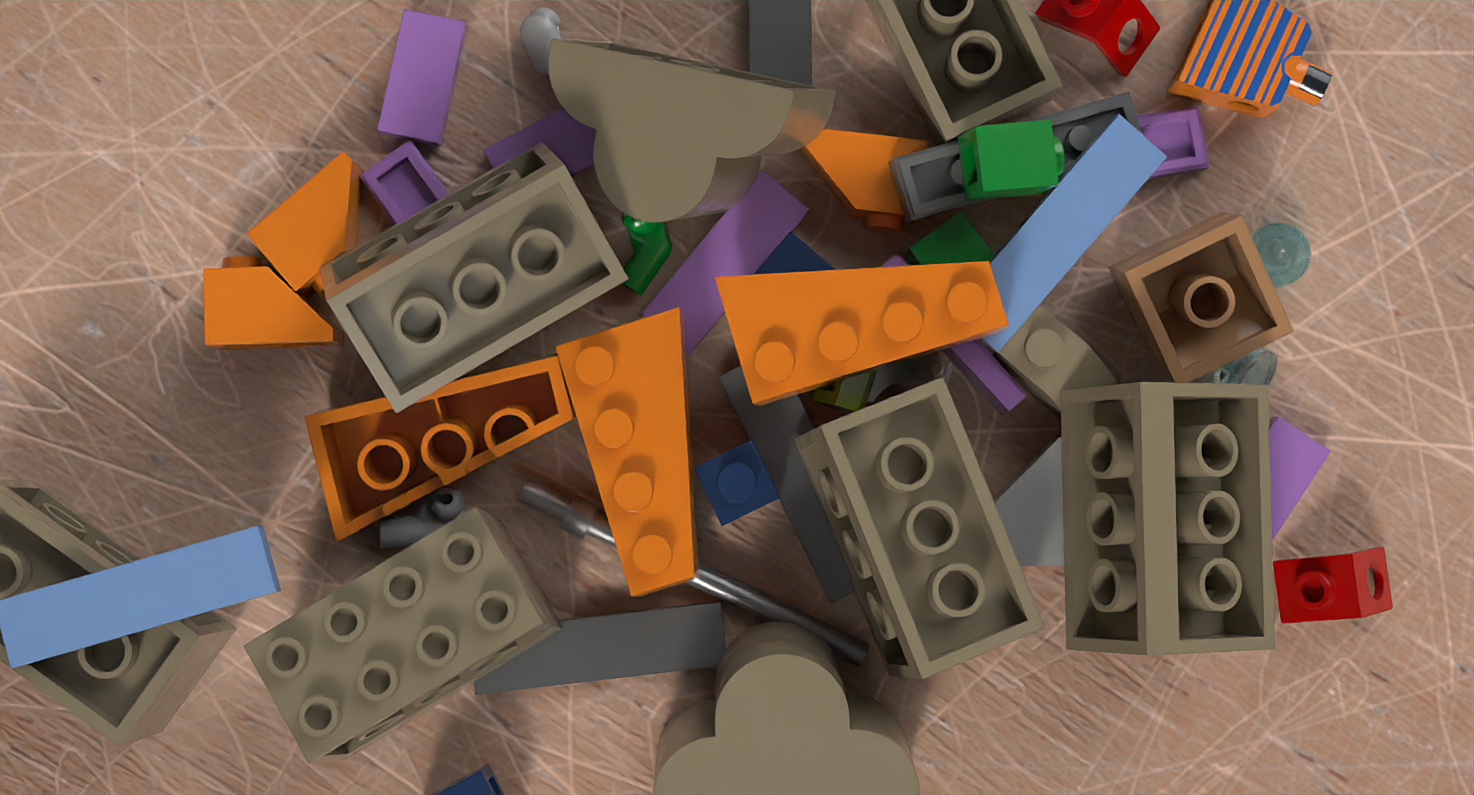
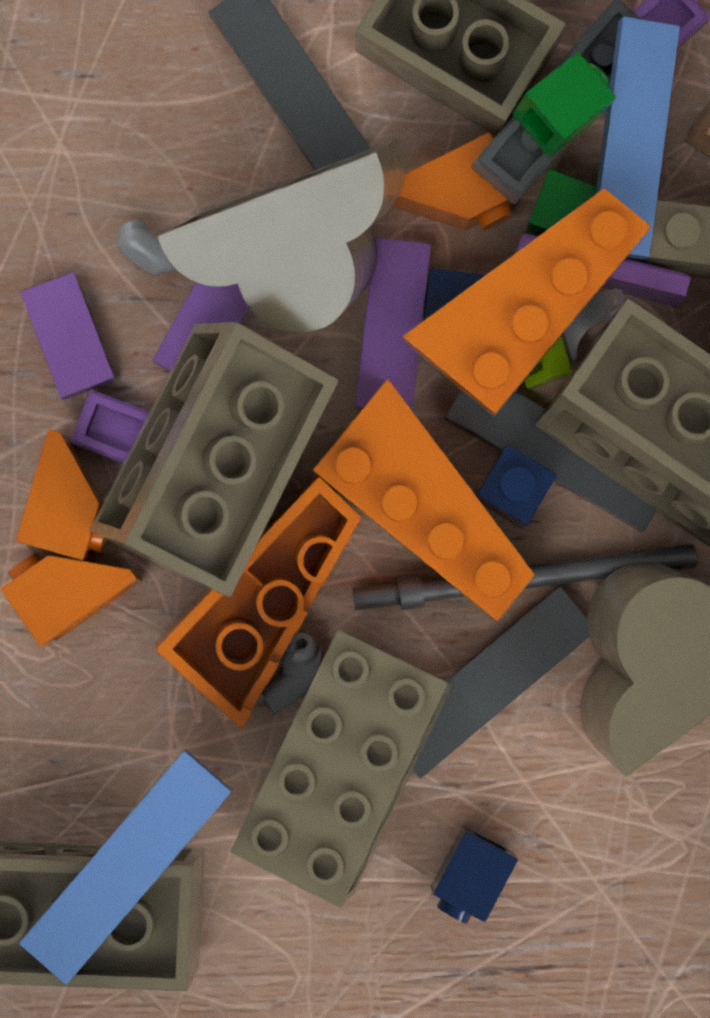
camera: 35 degrees left, 0 degrees up
(651, 249) = (328, 351): green arm -> none

